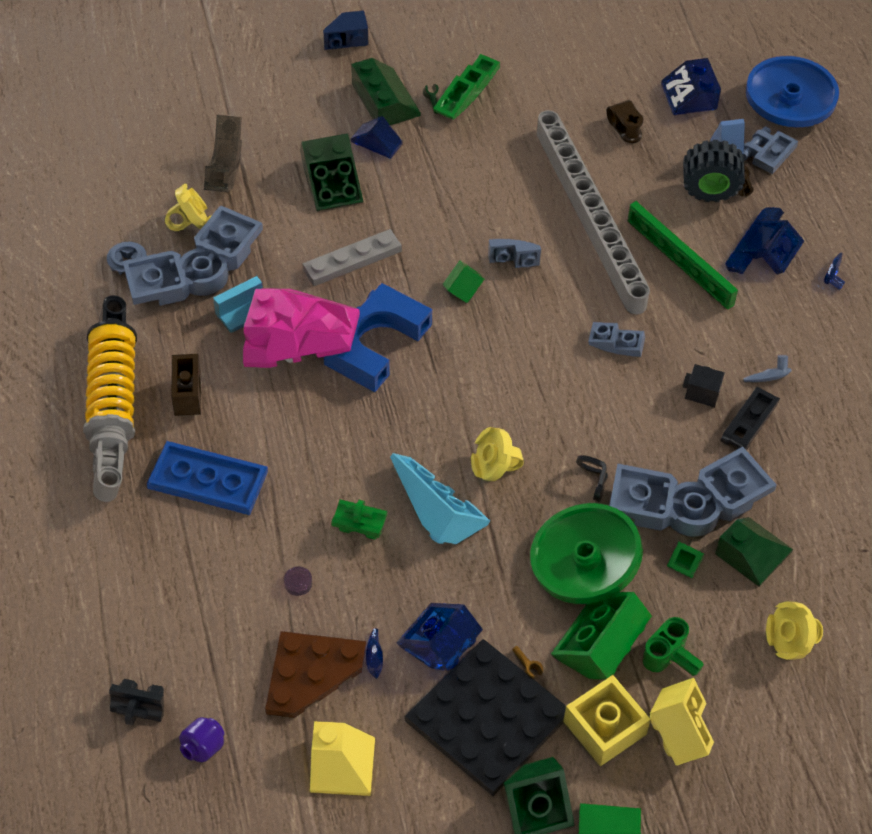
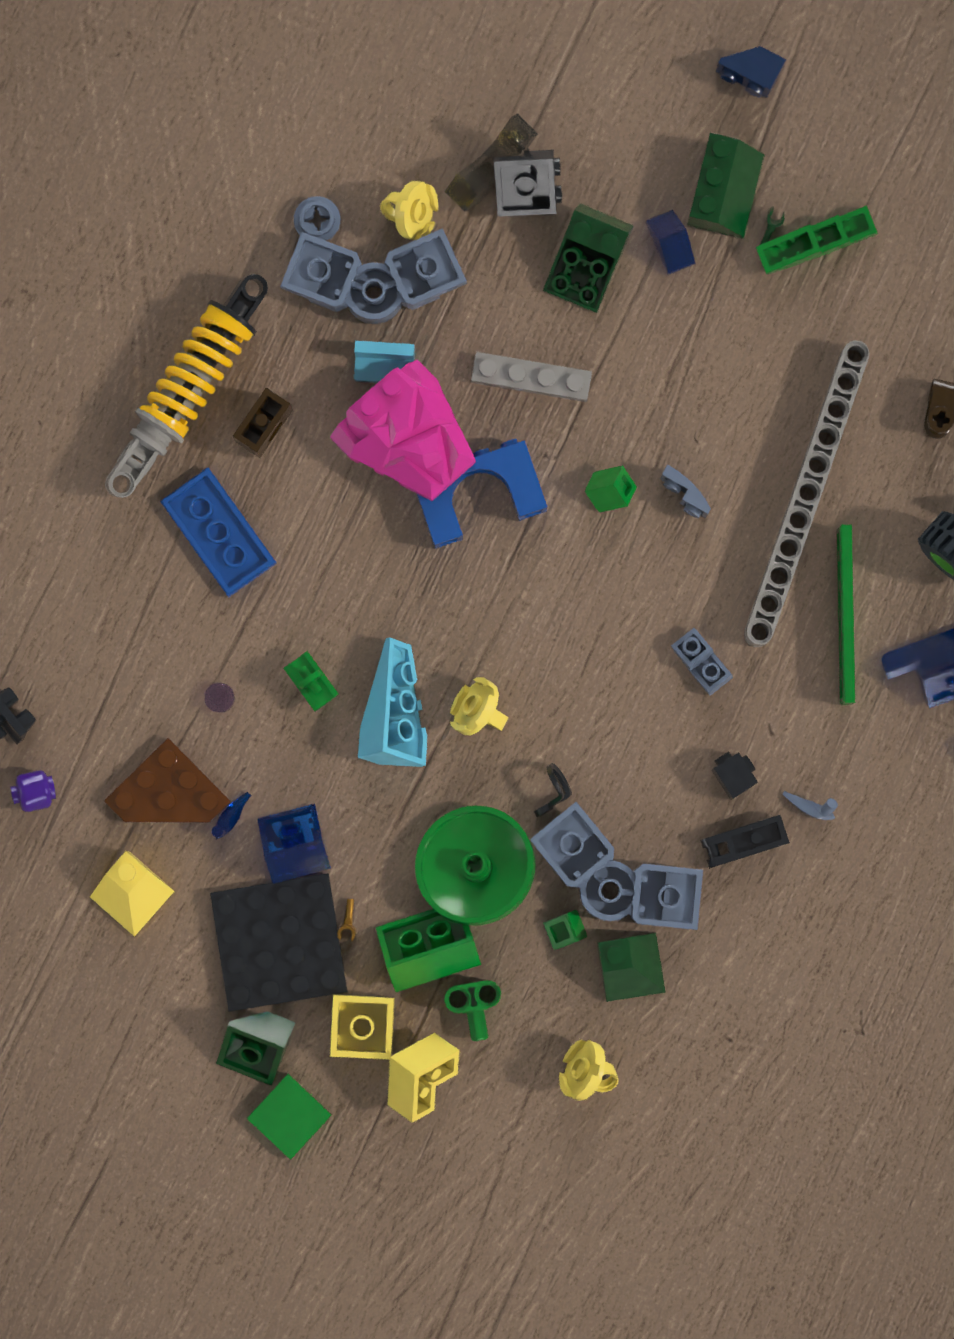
camera: 40 degrees right, 30 degrees up
(256, 152) = (527, 183): none -> plate

